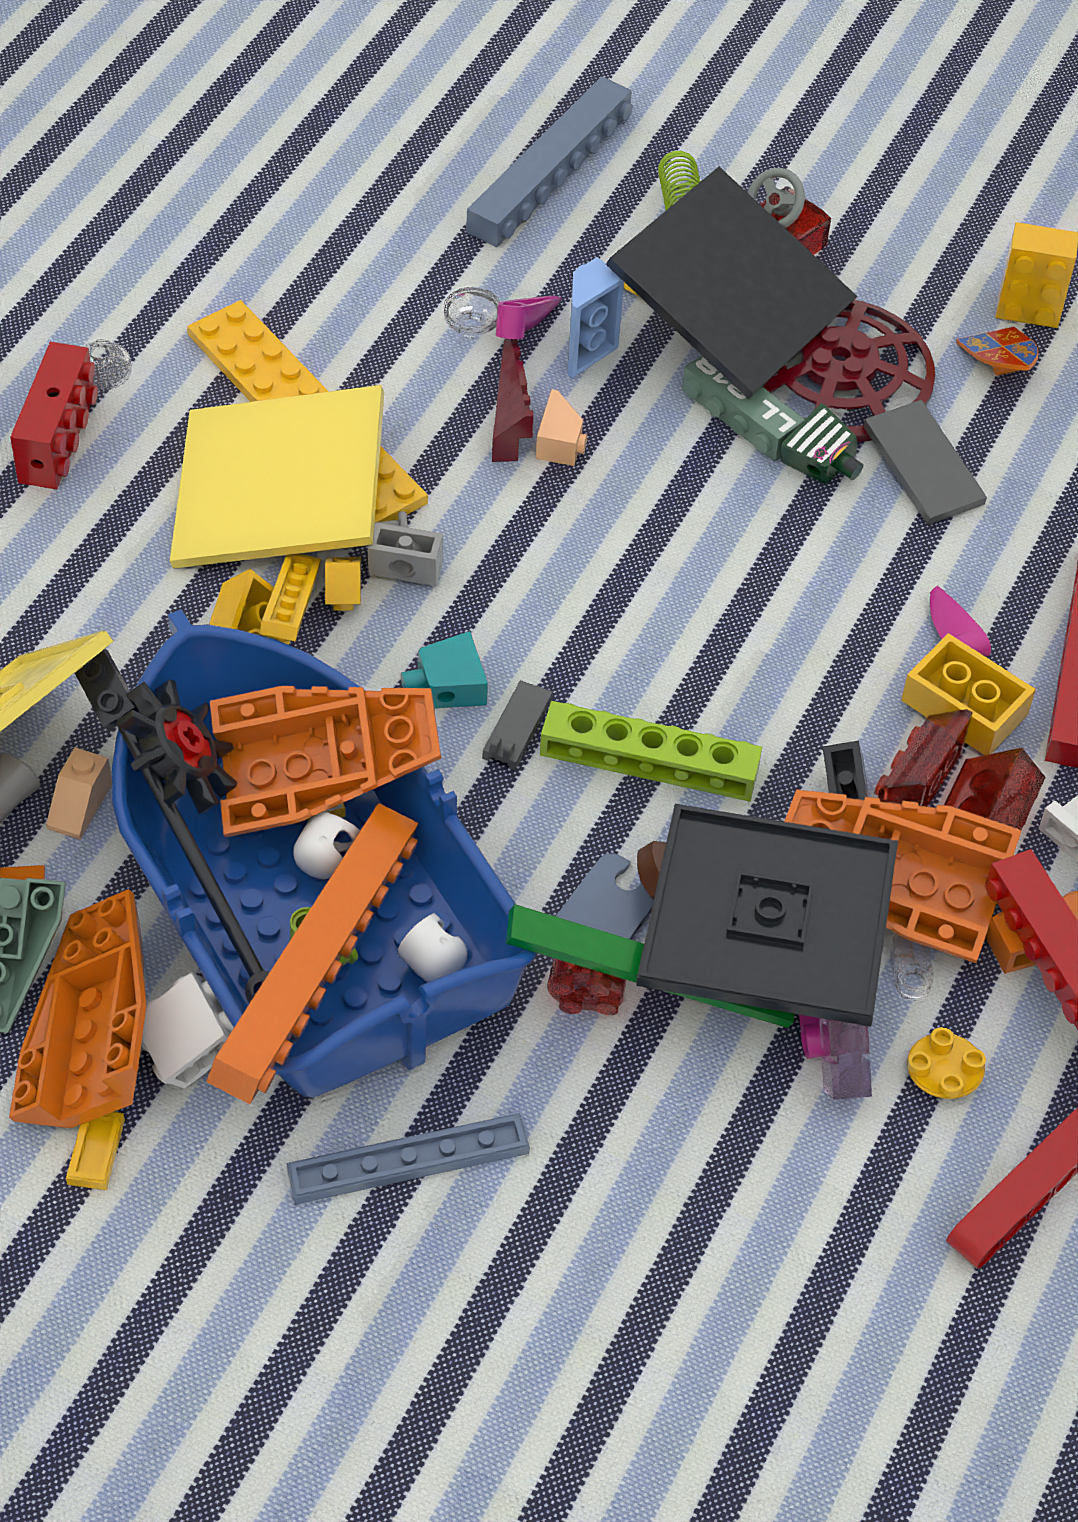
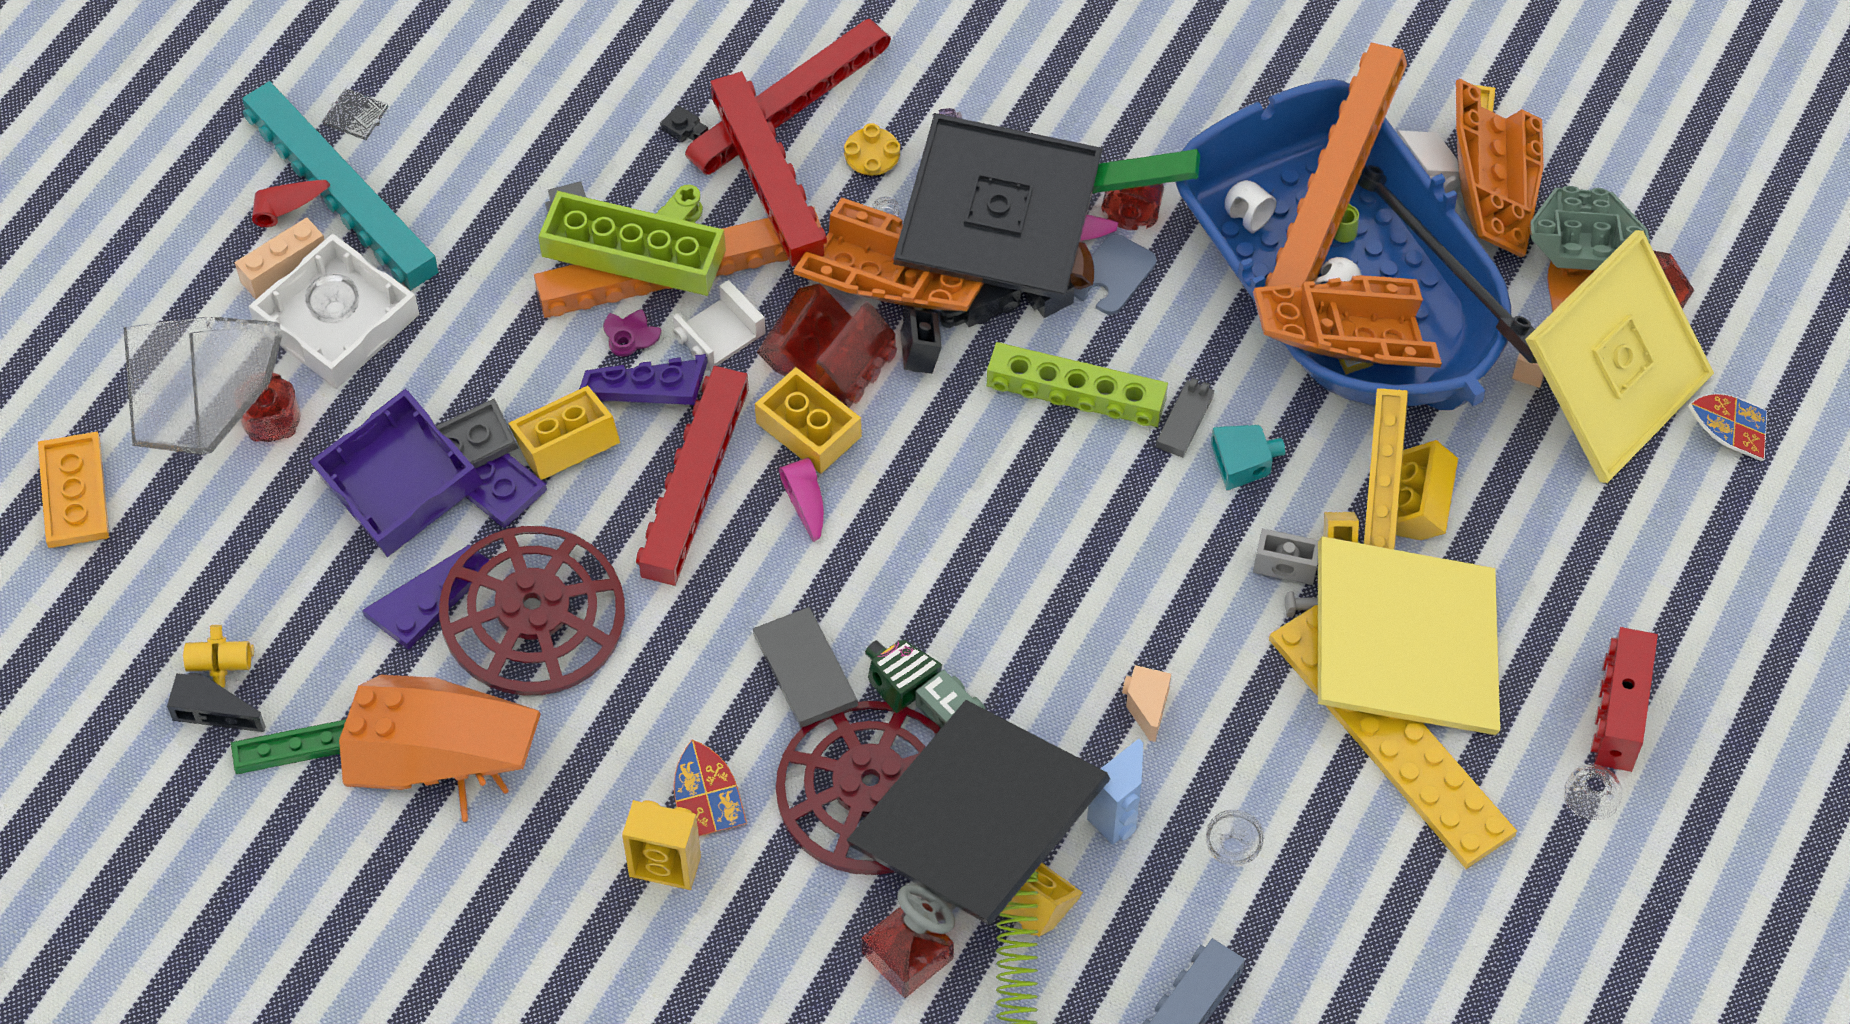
camera: 175 degrees left, 5 degrees up
(177, 745) = (1462, 309): black gear -> none
(407, 1158) = (1214, 108): sand blue tile -> none
(513, 412) = (1194, 698): dark red wedge -> none
(521, 315) = (1179, 838): dark pink piece -> none

